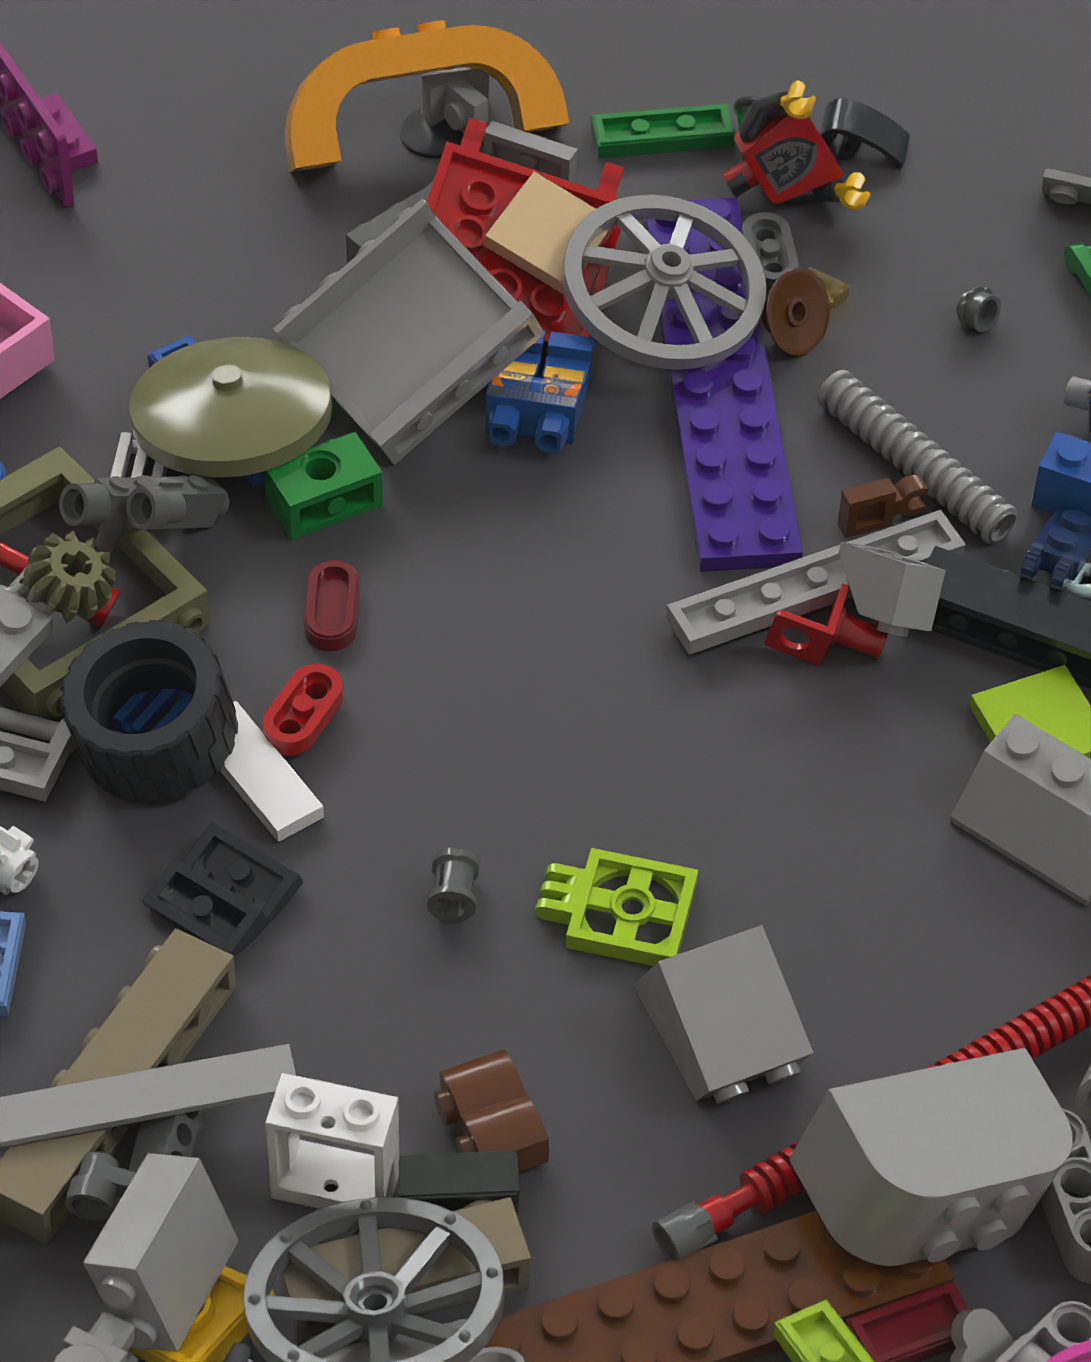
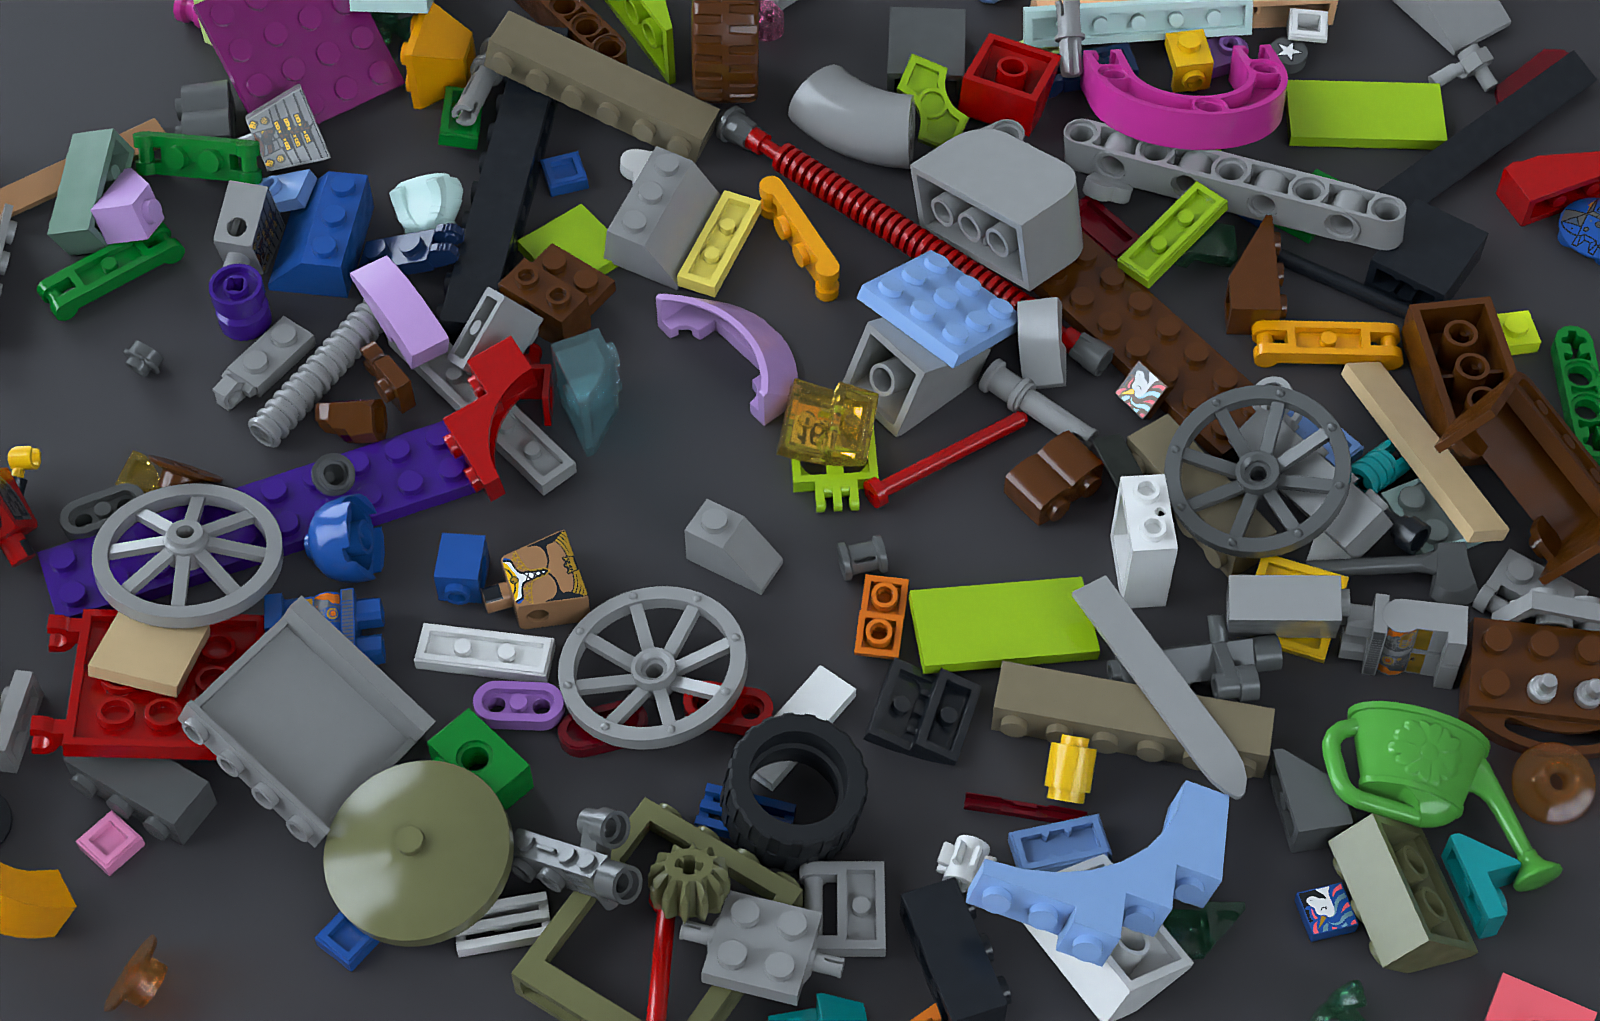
camera: 105 degrees left, 5 degrees up
(56, 959) = (1020, 809): none -> dark red piece
(70, 991) = (1070, 769): none -> yellow brick
(200, 203) = (138, 978): none -> clear orange piece
(308, 982) = (999, 623): none -> lime tile
(357, 886) = (881, 617): none -> orange slope
(362, 208) = (110, 843): none -> bright pink tile
(374, 649) = (654, 669): none -> light grey wheel
(378, 542) = (520, 704): none -> medium lavender plate
(470, 528) = (484, 653): none -> white tile
(515, 759) = (731, 547): none -> light grey slope
(533, 582) = (540, 584): none -> medium nougat torso
(548, 930) = (878, 491): none -> red bar
(580, 517) = (461, 568): none -> blue brick
(599, 1269) = (1144, 390): none -> tile
(639, 1127) = (1022, 396): none -> light grey pin
(642, 419) = (344, 540): none -> blue cylinder
(659, 893) = (828, 424): none -> clear yellow slope
(724, 1155) = (1041, 342): none -> light grey slope
(731, 411) = (333, 474): none -> dark grey plate
(746, 544) = (498, 381): none -> red arch
(779, 658) = (588, 385): none -> clear light blue slope
(782, 1039) = (940, 308): none -> light blue plate
(821, 860) = (745, 332): none -> lavender windscreen
(825, 464) = (354, 419): none -> reddish brown rock
(945, 410) = (263, 363): none -> light grey hinge
(952, 505) = (401, 311): none -> lavender slope
(956, 674) = (559, 291): none -> reddish brown brick
(983, 955) = (805, 241): none -> light orange plate
(1004, 869) = (719, 243): none -> light yellow plate
(1027, 388) = (240, 302): none -> dark purple wheel

